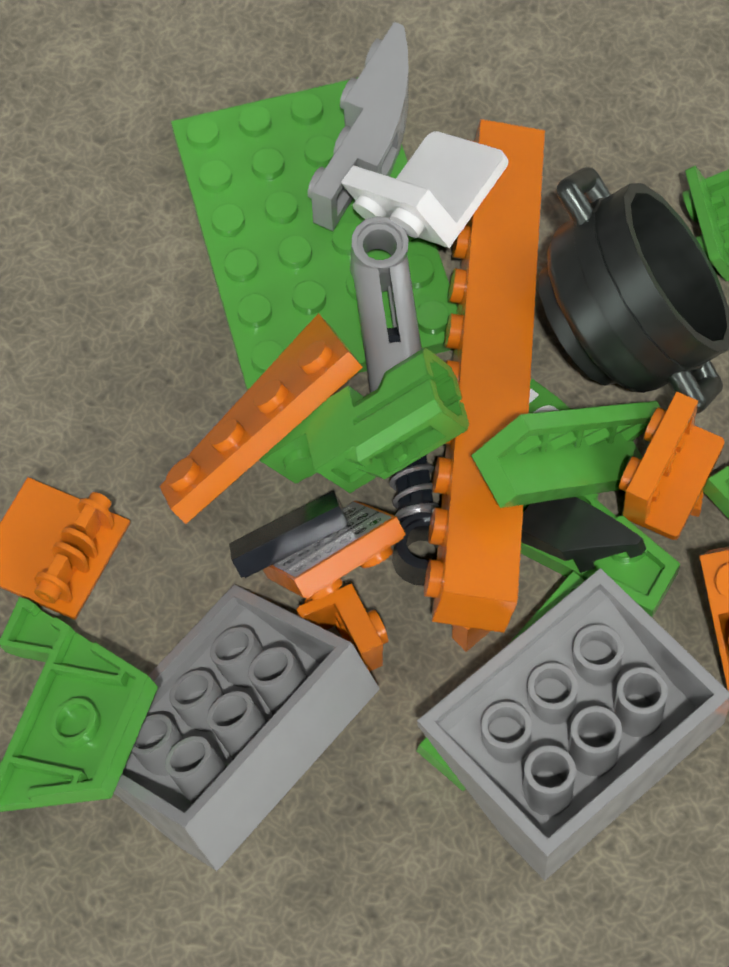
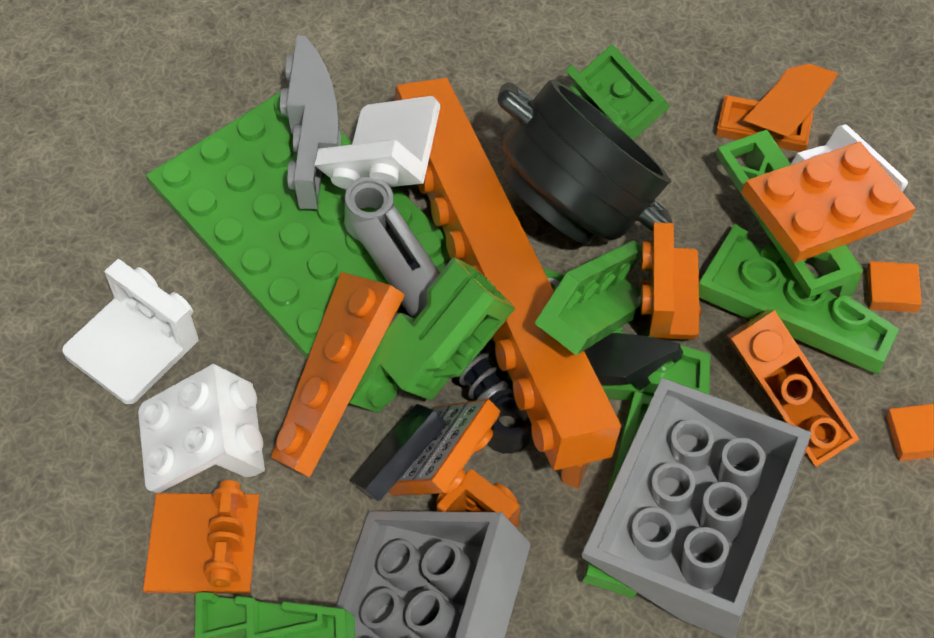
camera: 25 degrees left, 5 degrees down
(77, 299) = (134, 335): none -> white bracket
(103, 424) = (200, 425): none -> white bracket

